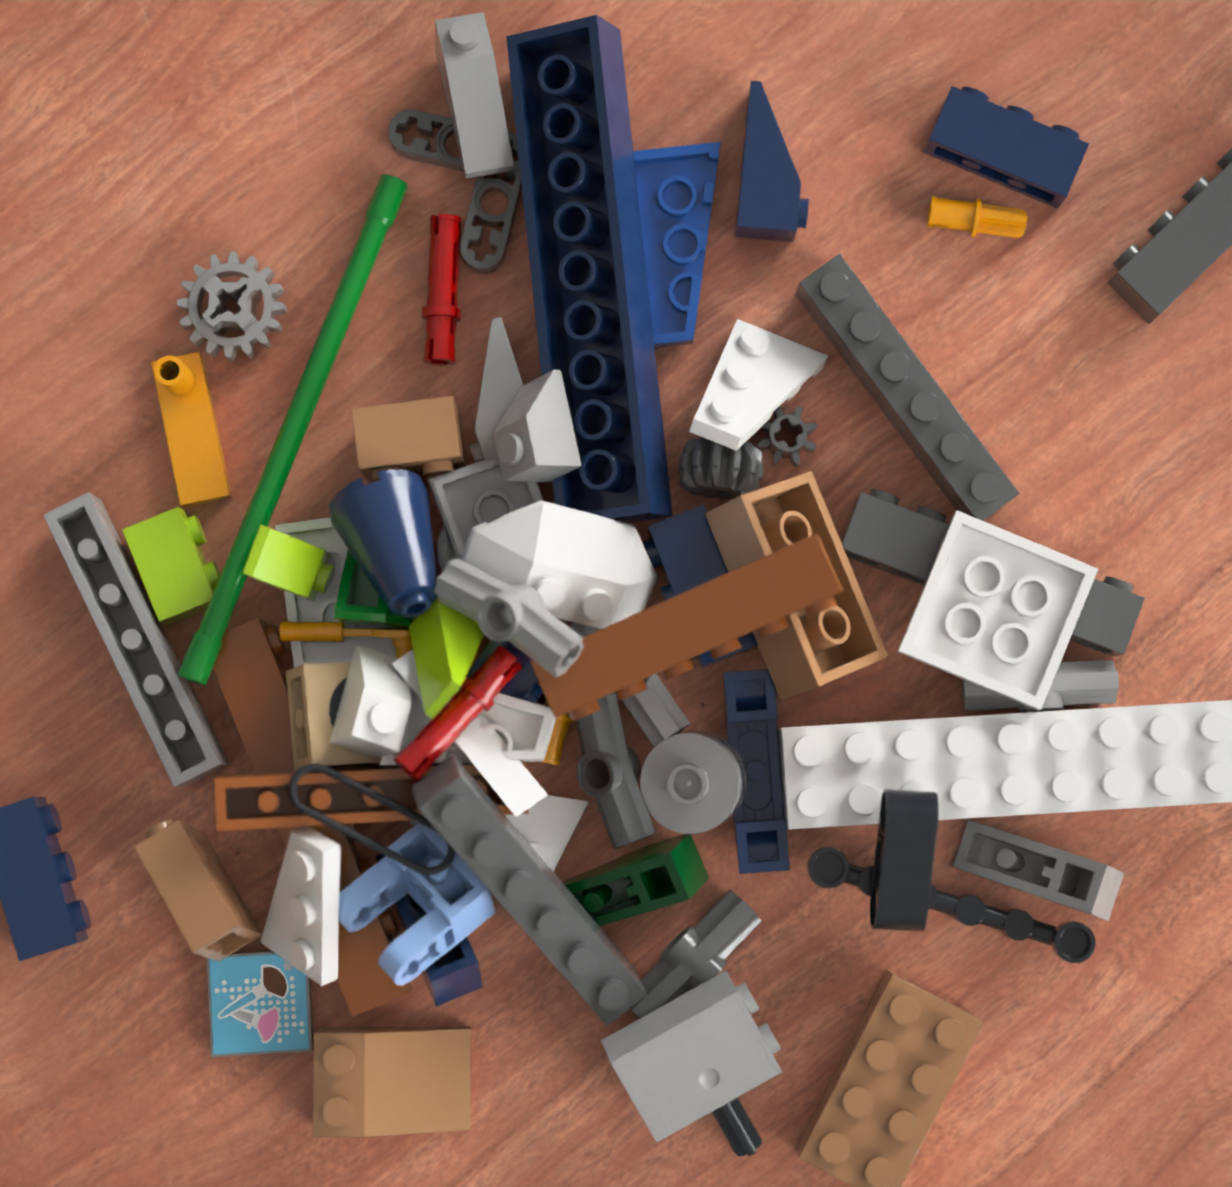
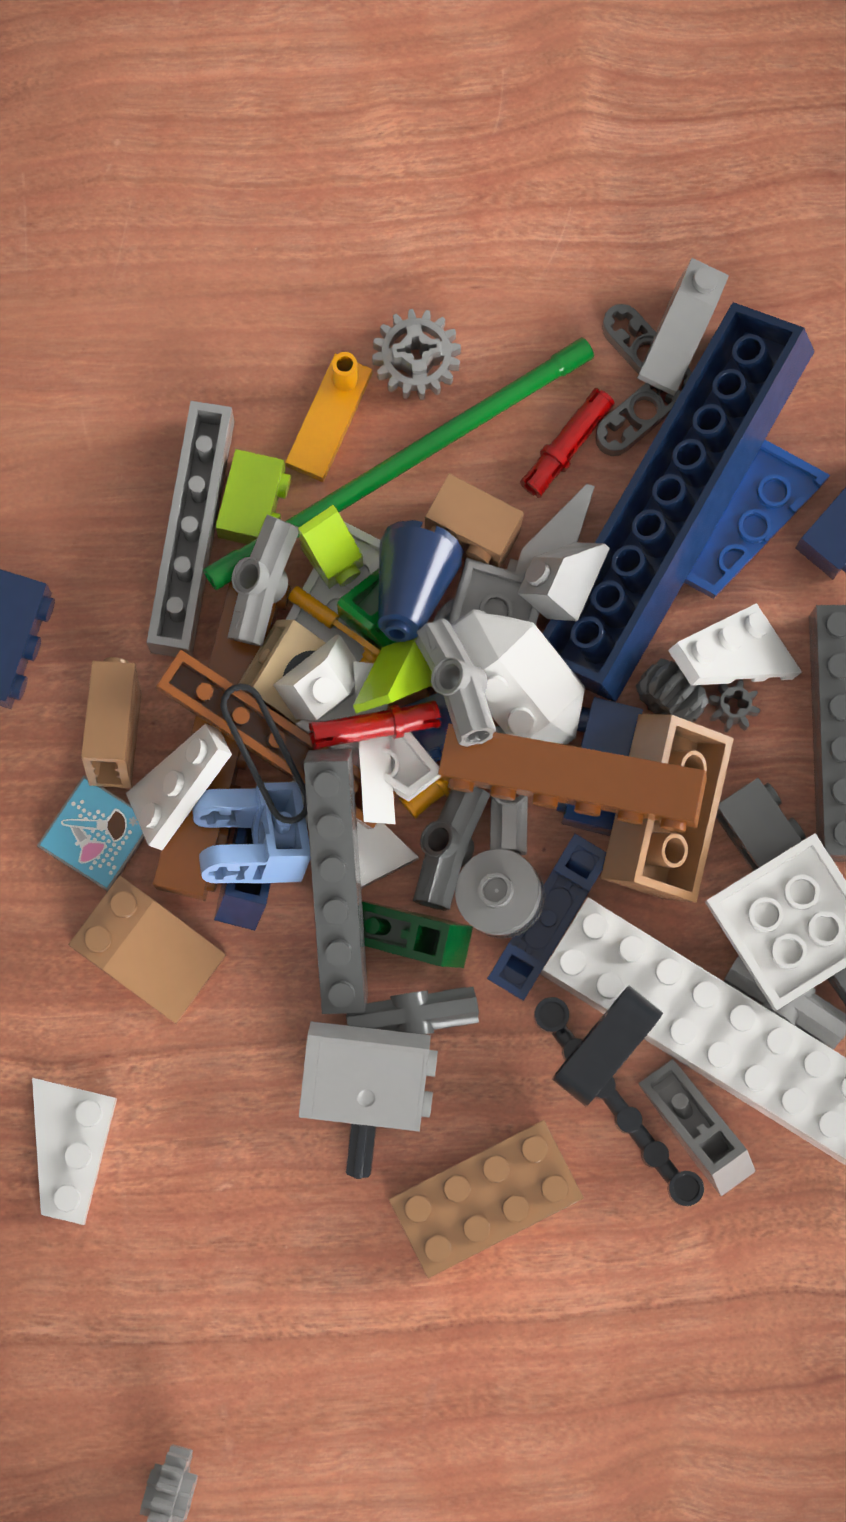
camera: 30 degrees right, 5 degrees down
(243, 646) = (261, 581): none -> light grey piece

